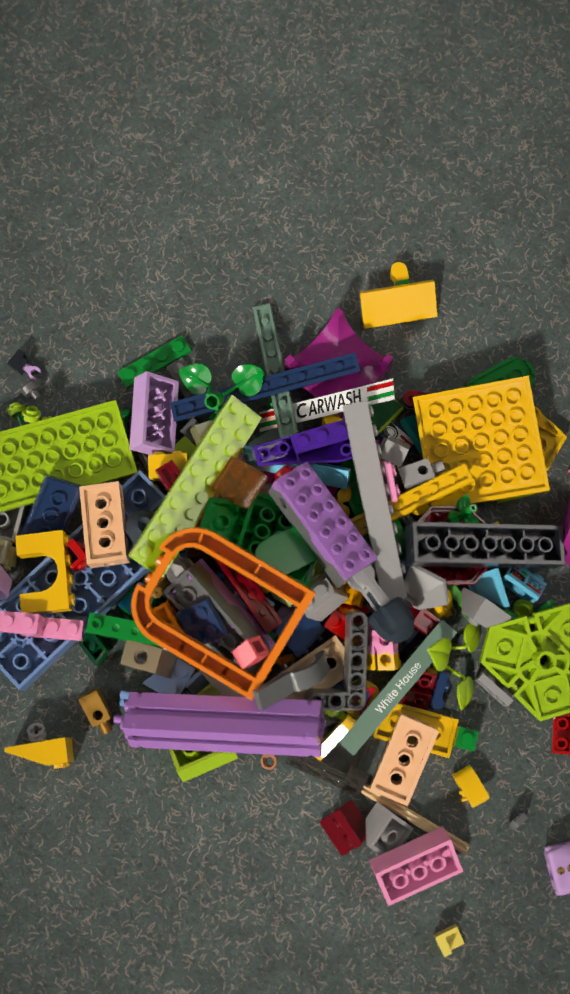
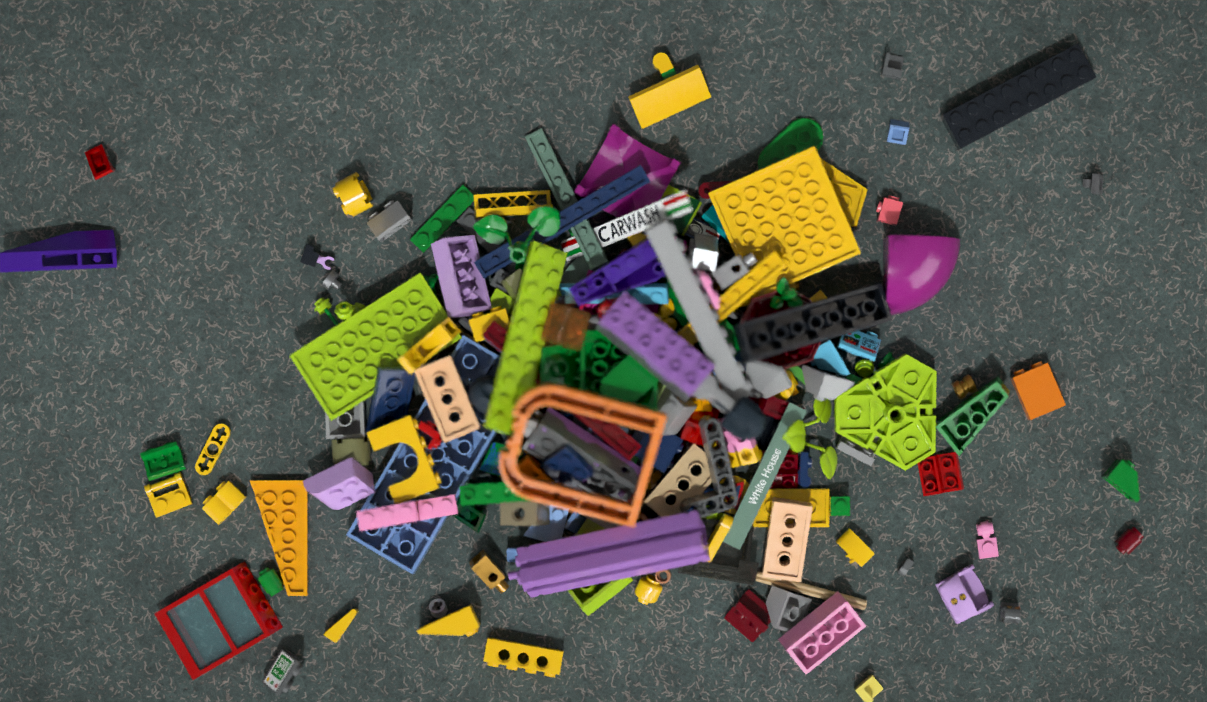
camera: 15 degrees left, 10 degrees up
(76, 315) = (353, 195): none -> yellow brick
(76, 799) = (493, 659): none -> yellow brick
(102, 349) = (388, 221): none -> light grey slope
(102, 468) = (429, 345): none -> yellow arch
(216, 368) = (509, 211): none -> yellow fence
(250, 652) = (617, 487): coral brick -> none
(250, 772) = (648, 589): none -> yellow head
(292, 681) = (664, 500): dark grey piece -> none

